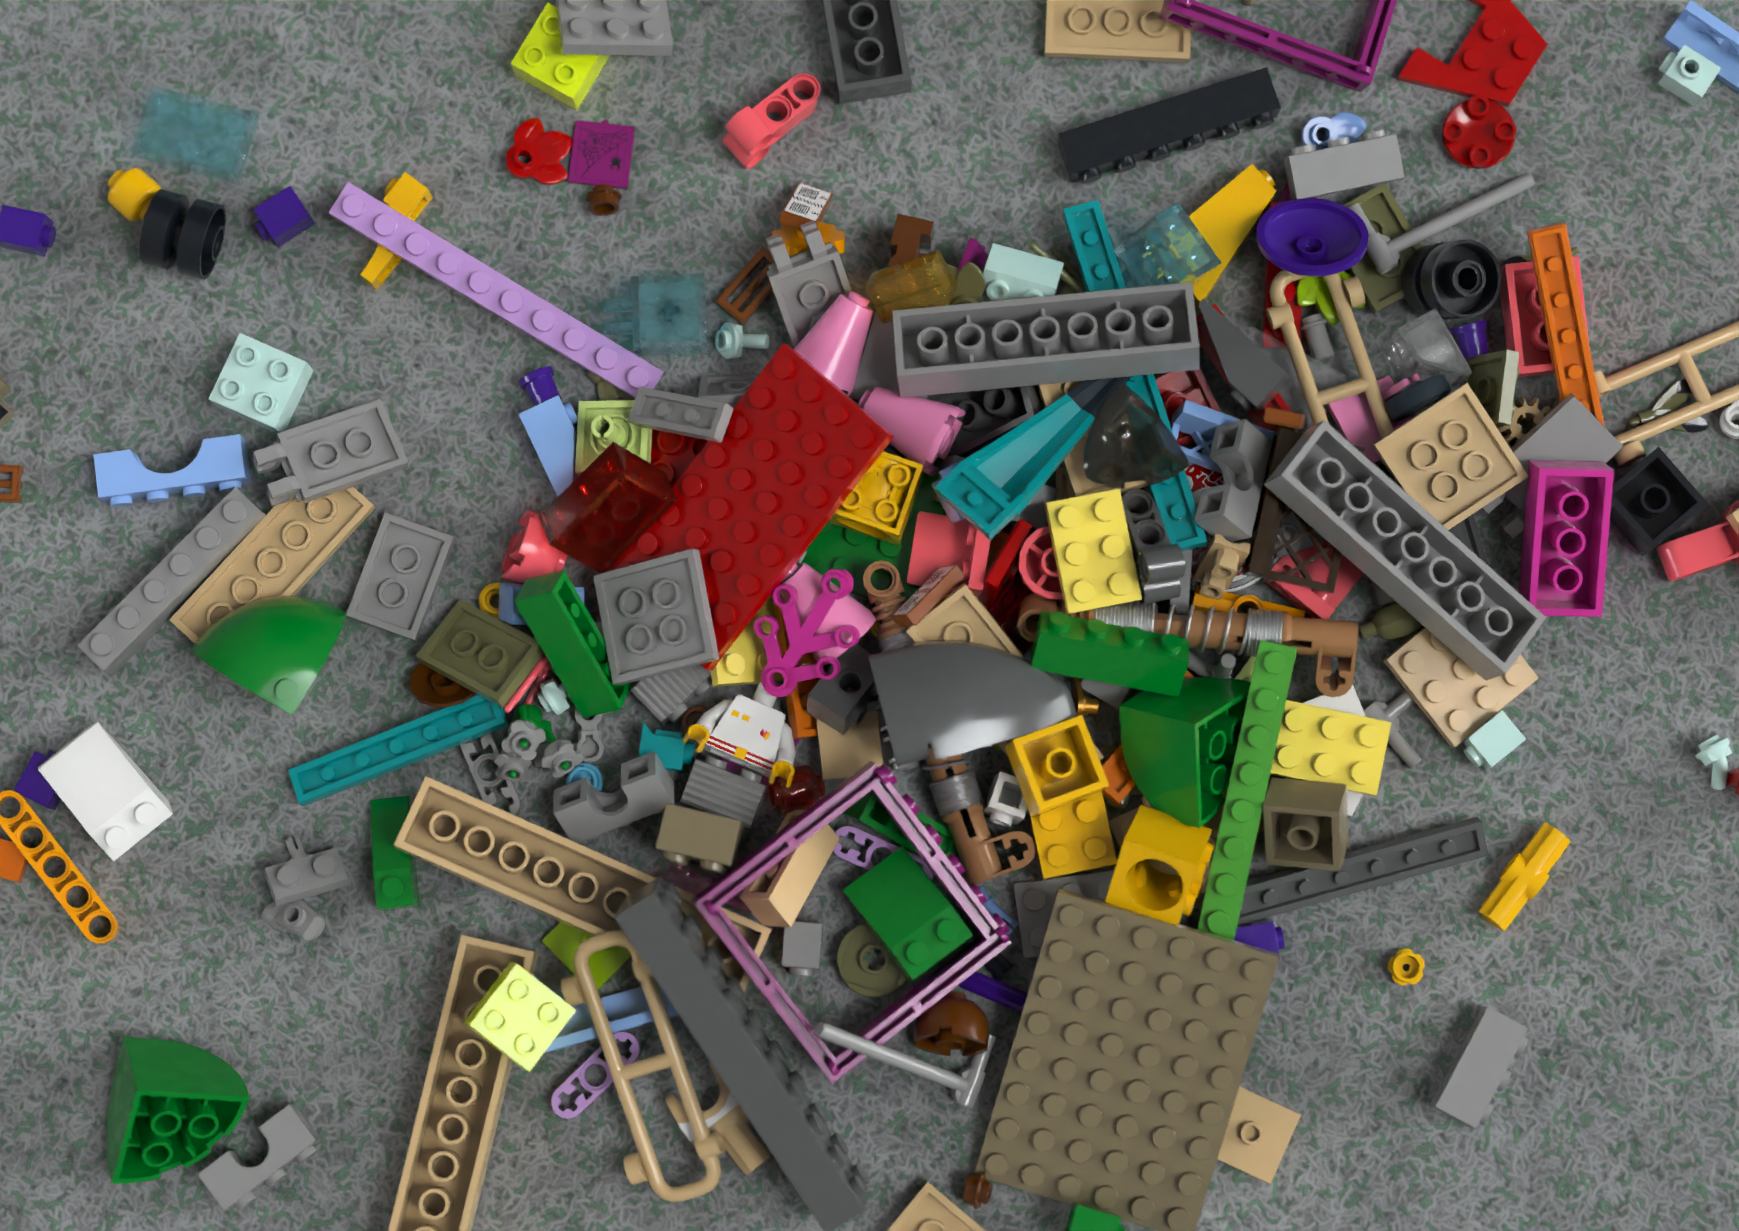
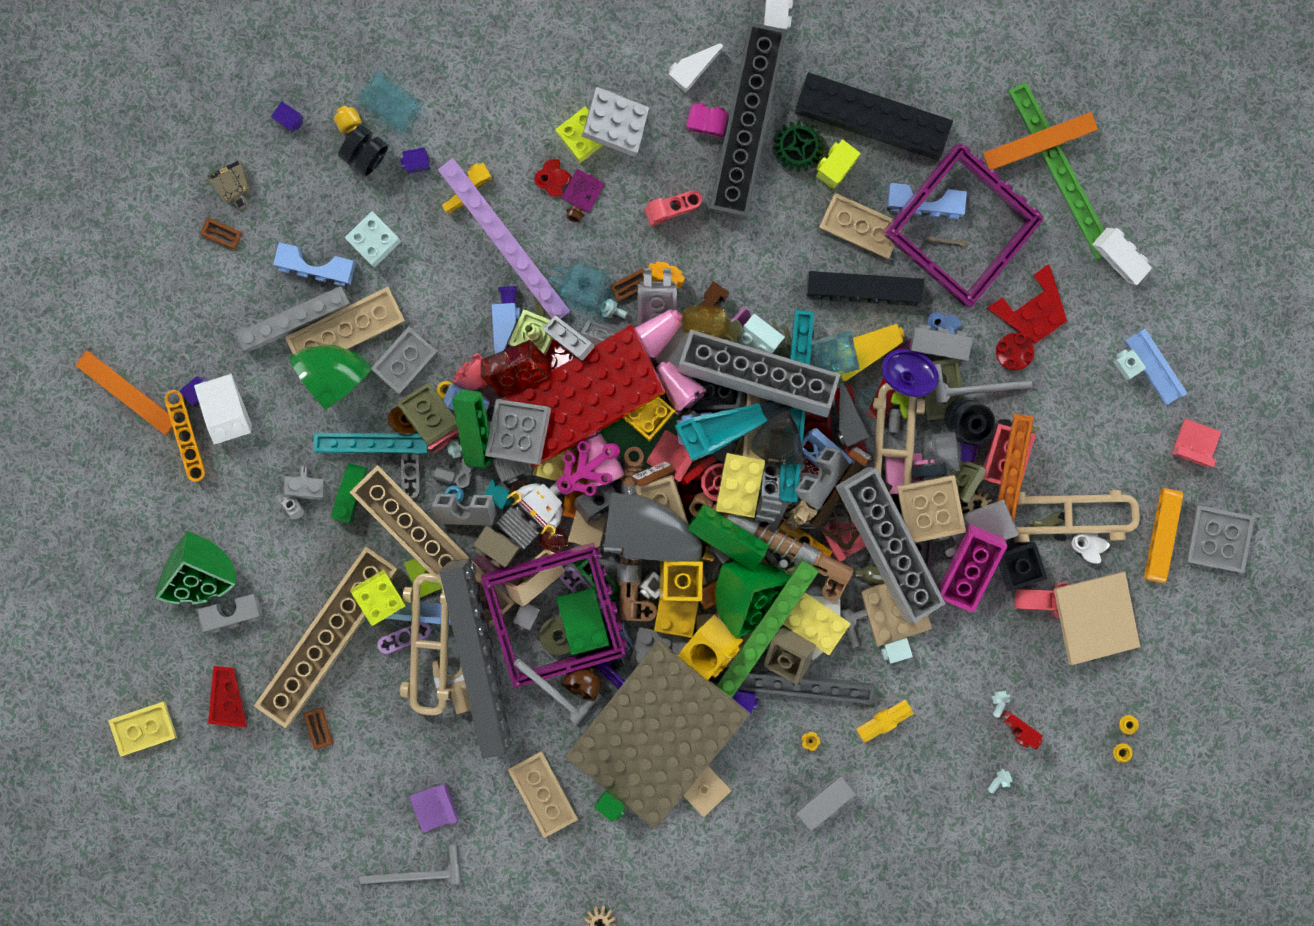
camera: 20 degrees right, 5 degrees up
(332, 454) = (394, 288): light grey tile -> none
(521, 744) = (433, 464): light grey plant -> none
(805, 206) = (671, 257): tile -> none
(977, 1190) = (563, 764): reddish brown plate -> none

